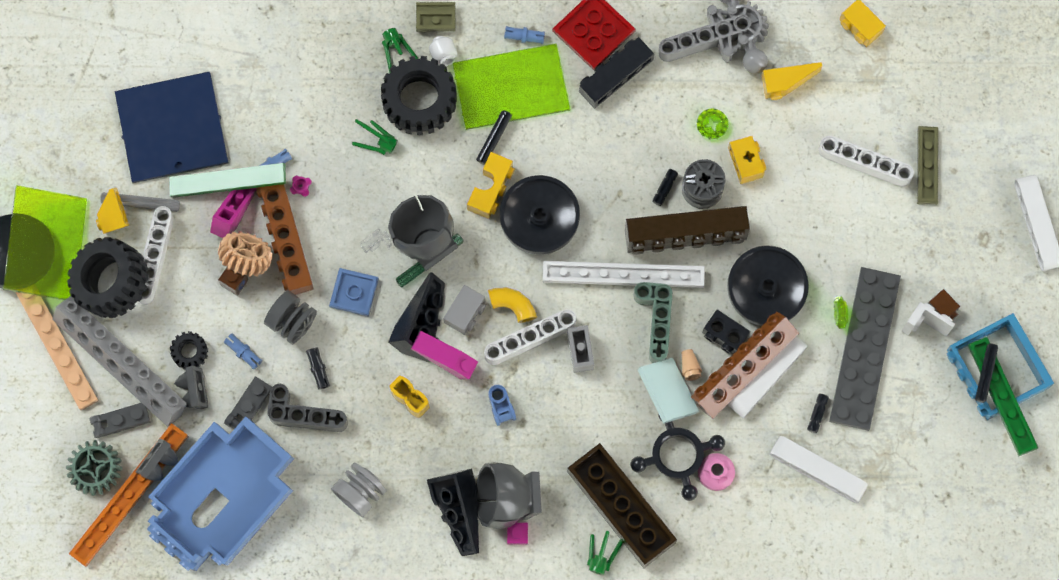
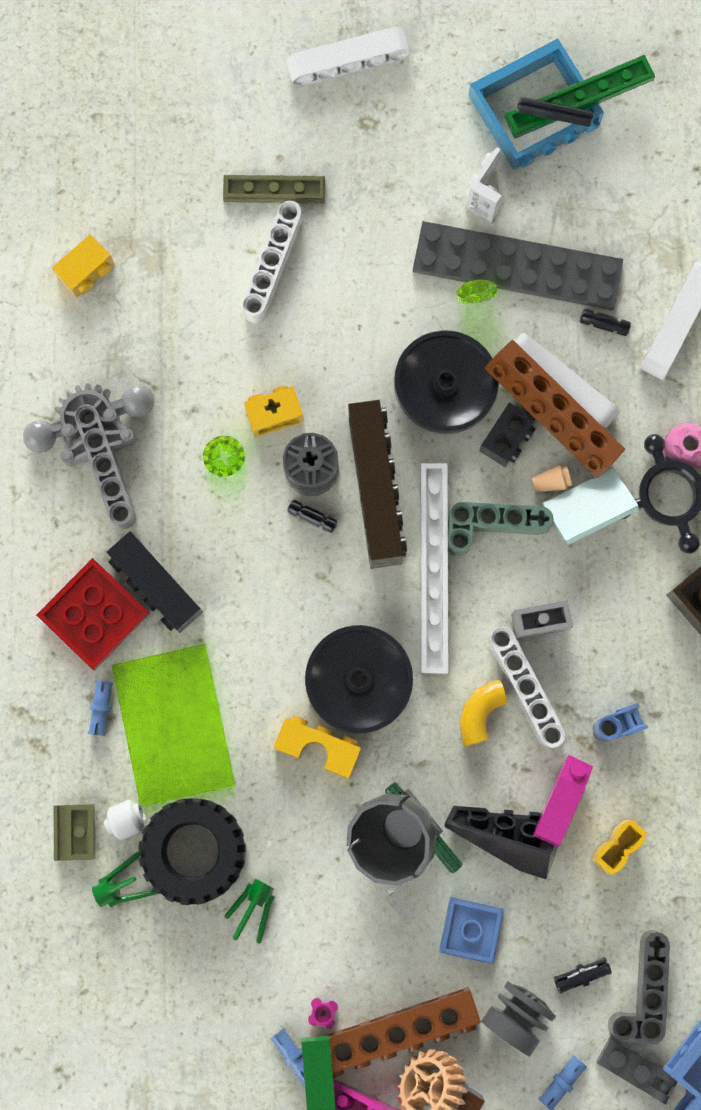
camera: 90 degrees left, 5 degrees up
(464, 310) = (493, 776): light grey brick -> none
(494, 136) = (248, 745): black axle -> none
(783, 80) = (164, 364): yellow slope -> none
(945, 304) = (461, 168): reddish brown brick -> none

